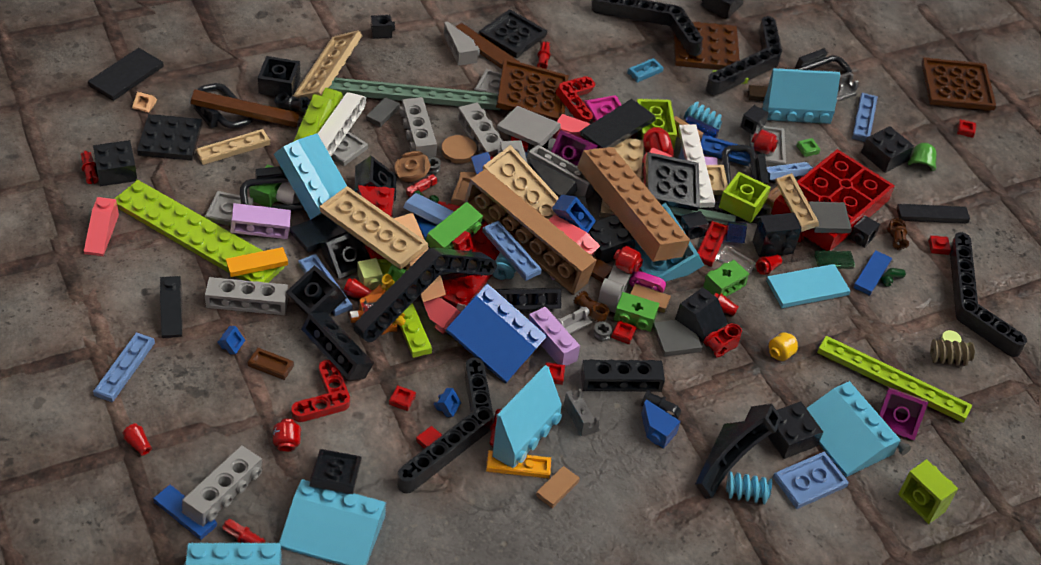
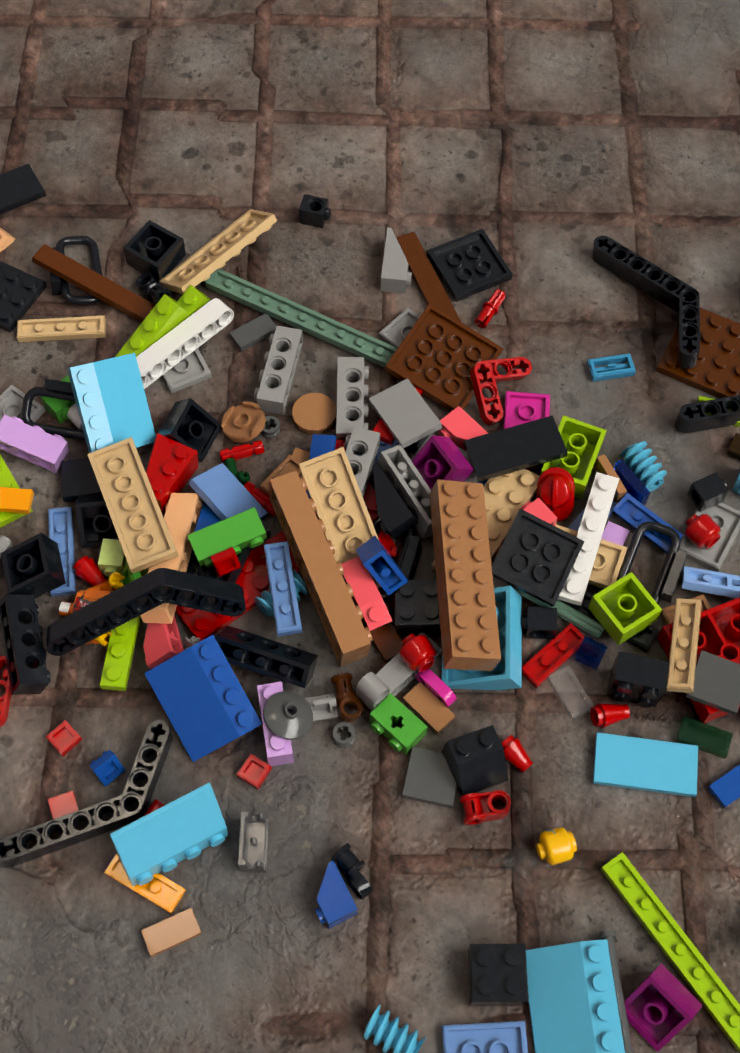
camera: 30 degrees right, 15 degrees up
(563, 323) = (285, 724): none -> dark grey dish
(622, 375) = (337, 821): black brick -> none
(624, 332) = (370, 745): red tile -> none
(726, 279) = (529, 727): bright green brick -> none
(733, 443) = (404, 968): black arch -> none

